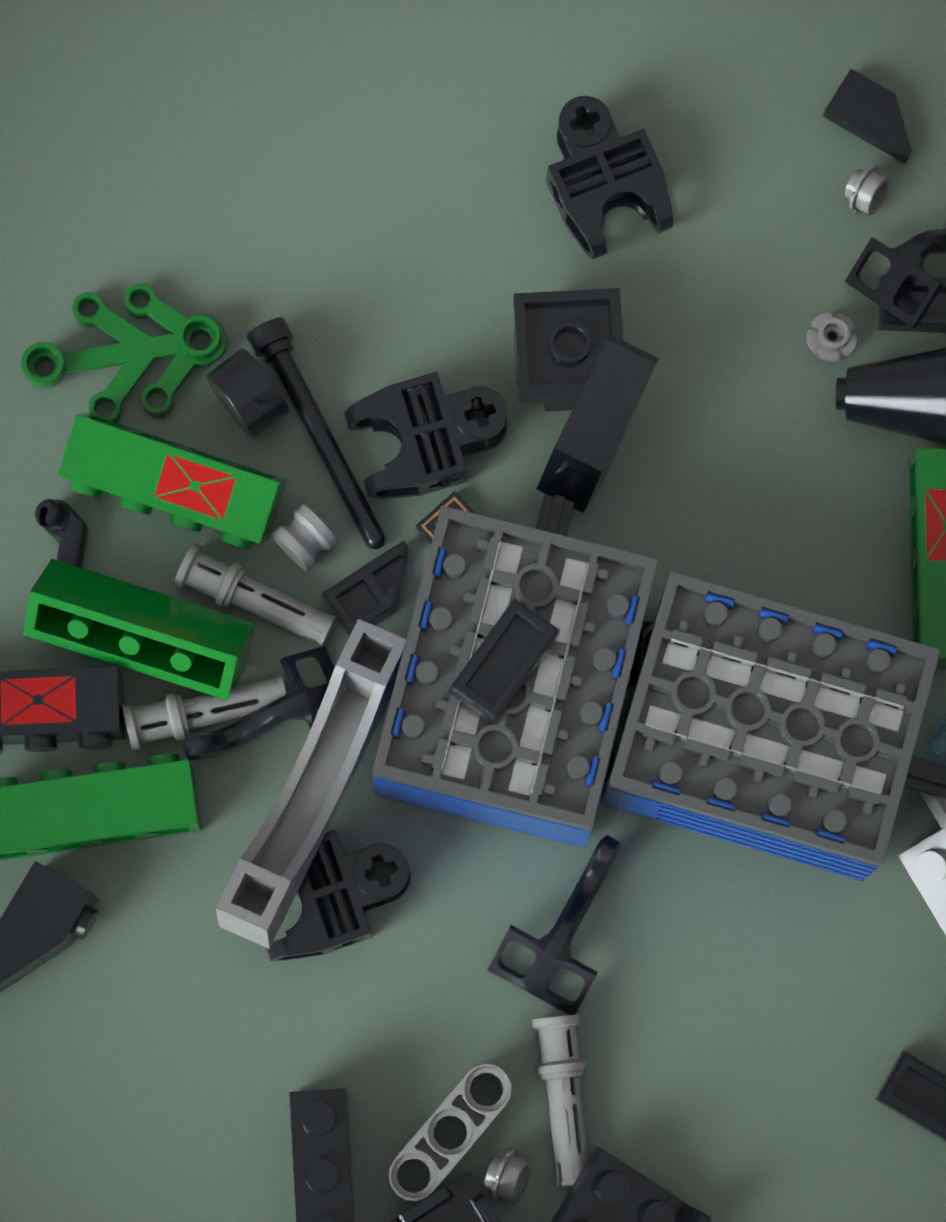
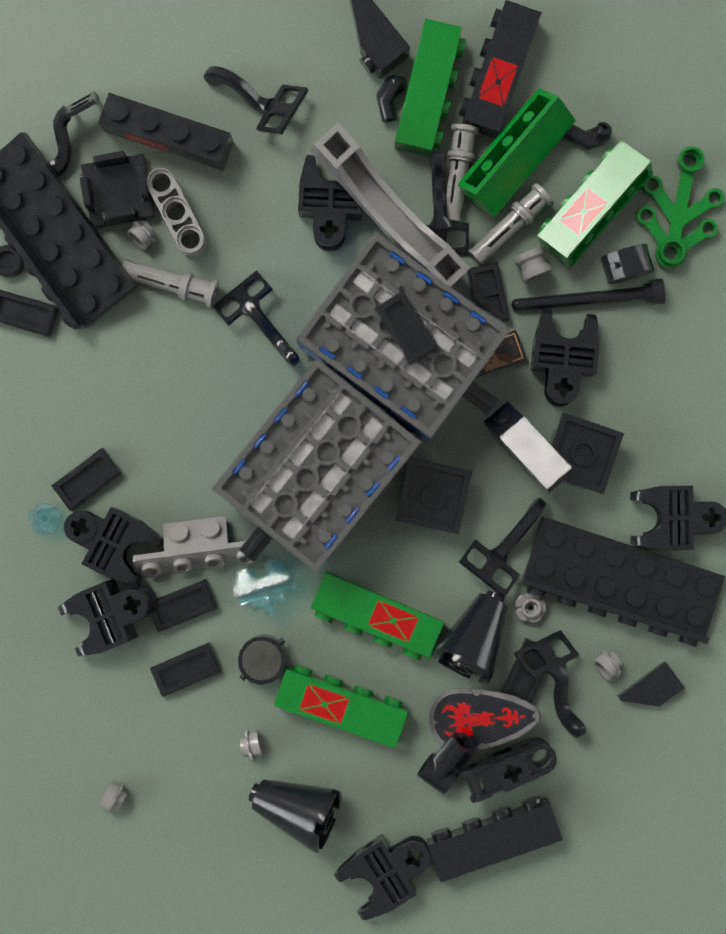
camera: 115 degrees right, 10 degrees up
(119, 873) = (388, 91): none -> black arm
(215, 1058) = (267, 106): none -> black piece
(732, 537) = (433, 495): none -> black panel
(734, 221) = (622, 581): none -> black bracket
(776, 414) = (498, 556): none -> black piece

